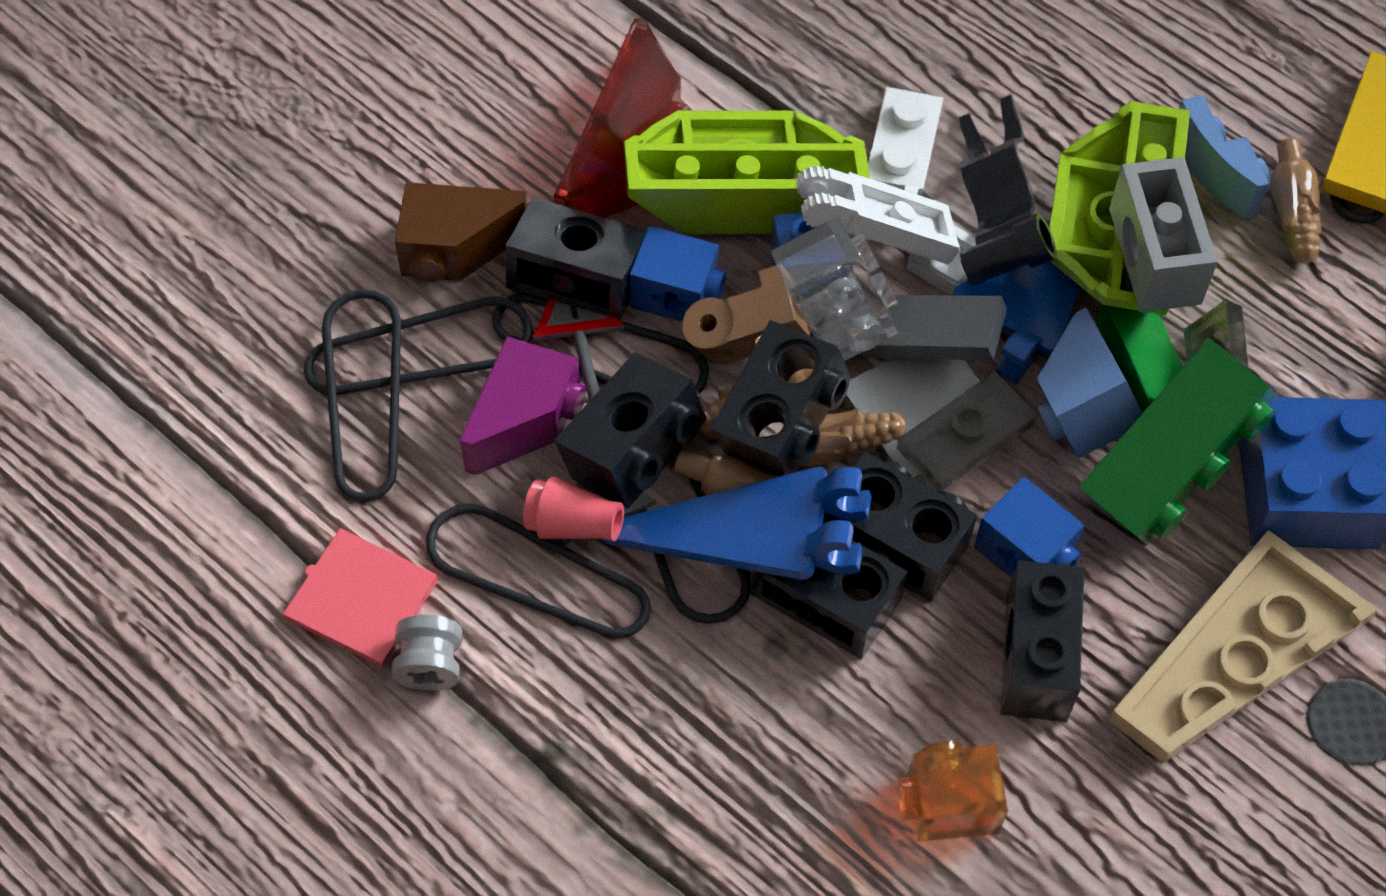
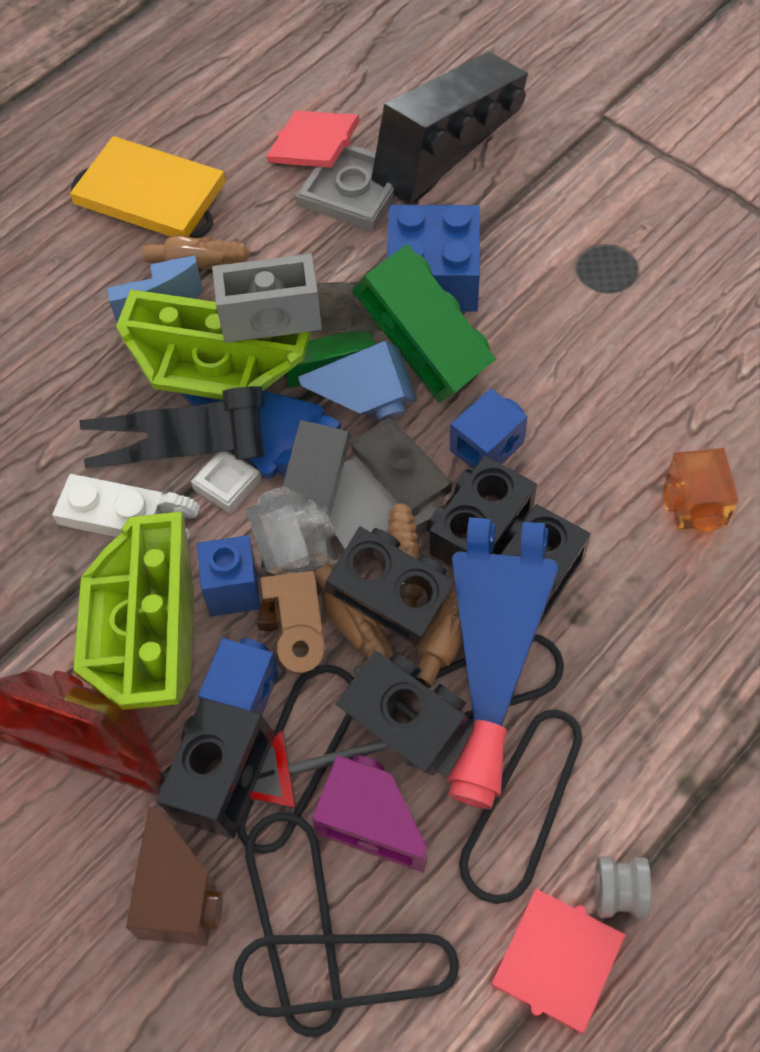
camera: 85 degrees left, 0 degrees up
(878, 212) = (207, 507): white hinge -> none
(1042, 641) = (578, 427): black brick -> none
(1244, 641) = (558, 313): tan wing -> none

